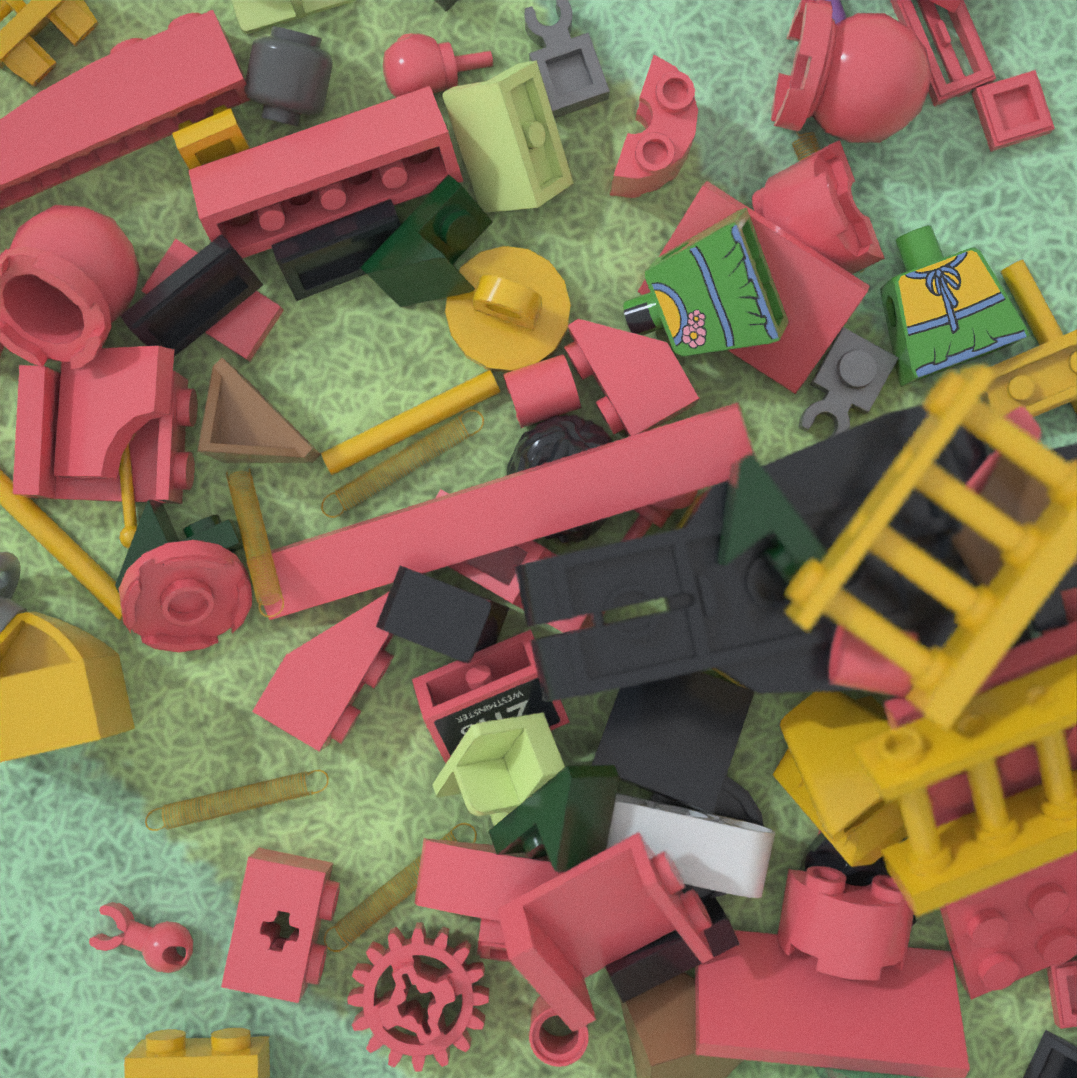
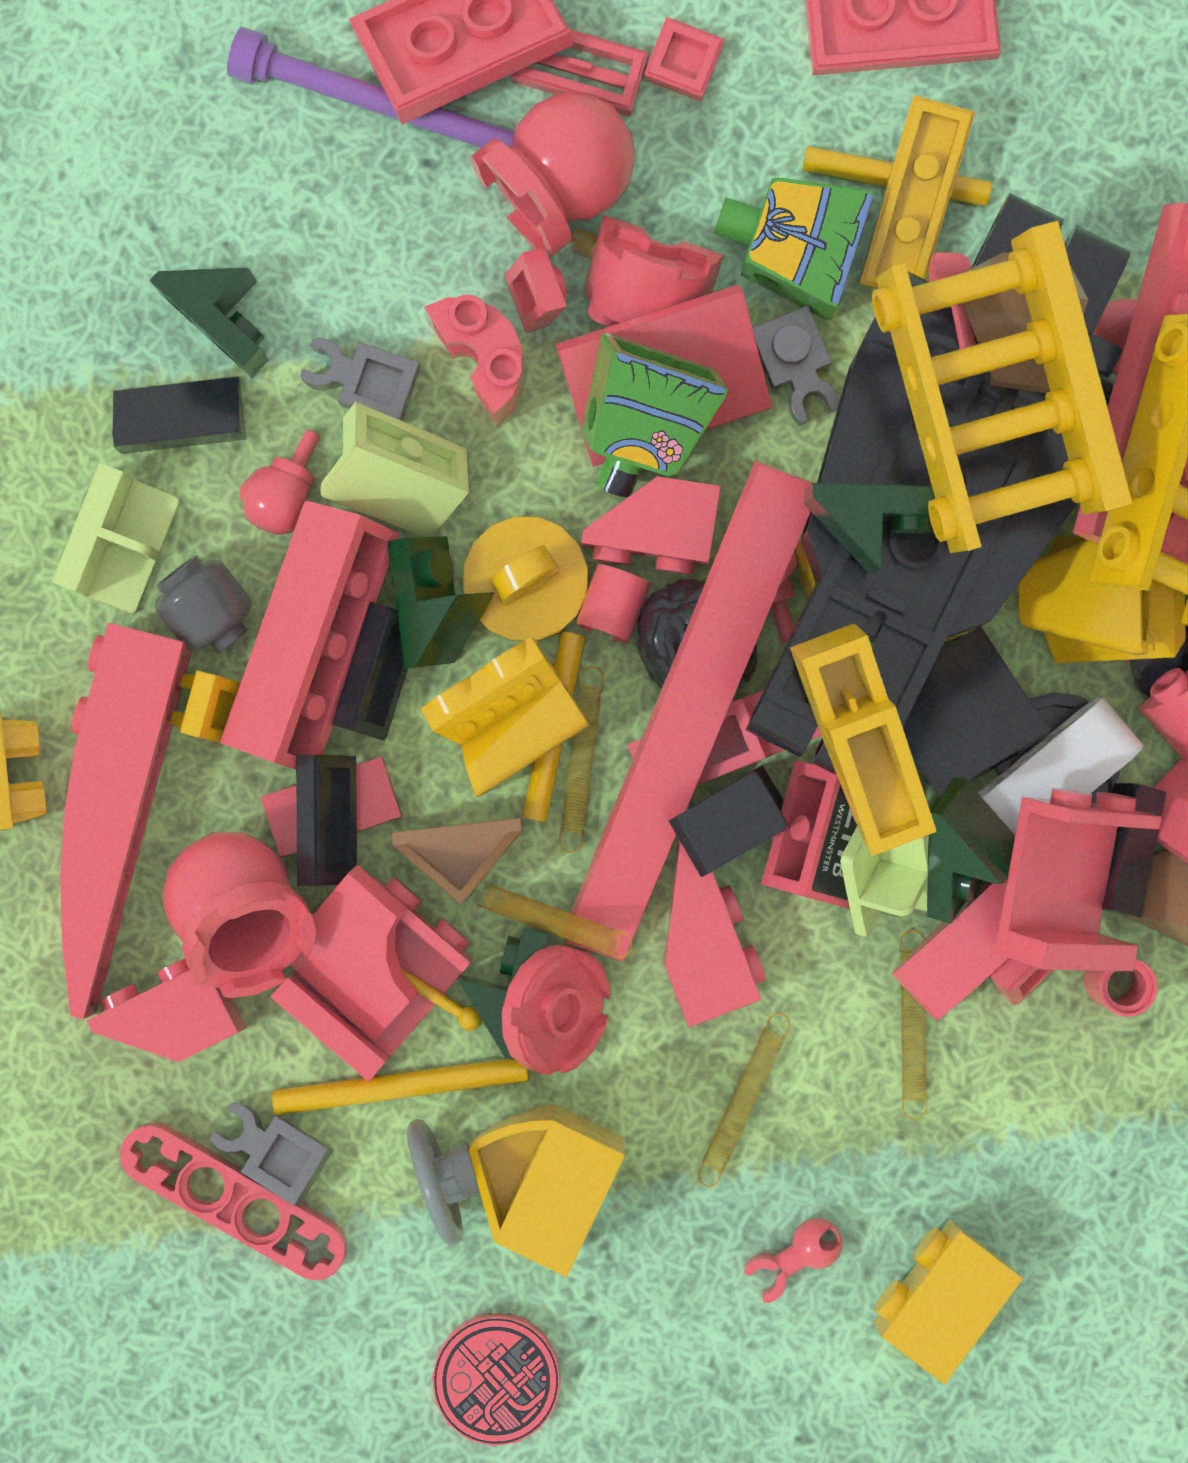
camera: 55 degrees left, 0 degrees up
(257, 955) = (883, 1175): coral brick -> none
(383, 372) = (506, 715): none -> yellow piece
(393, 1010) = (1005, 1104): coral gear -> none
(576, 664) = (864, 738): none -> yellow slope
(740, 137) = (536, 289): none -> coral plate
(862, 667) = (1033, 529): coral beam -> none

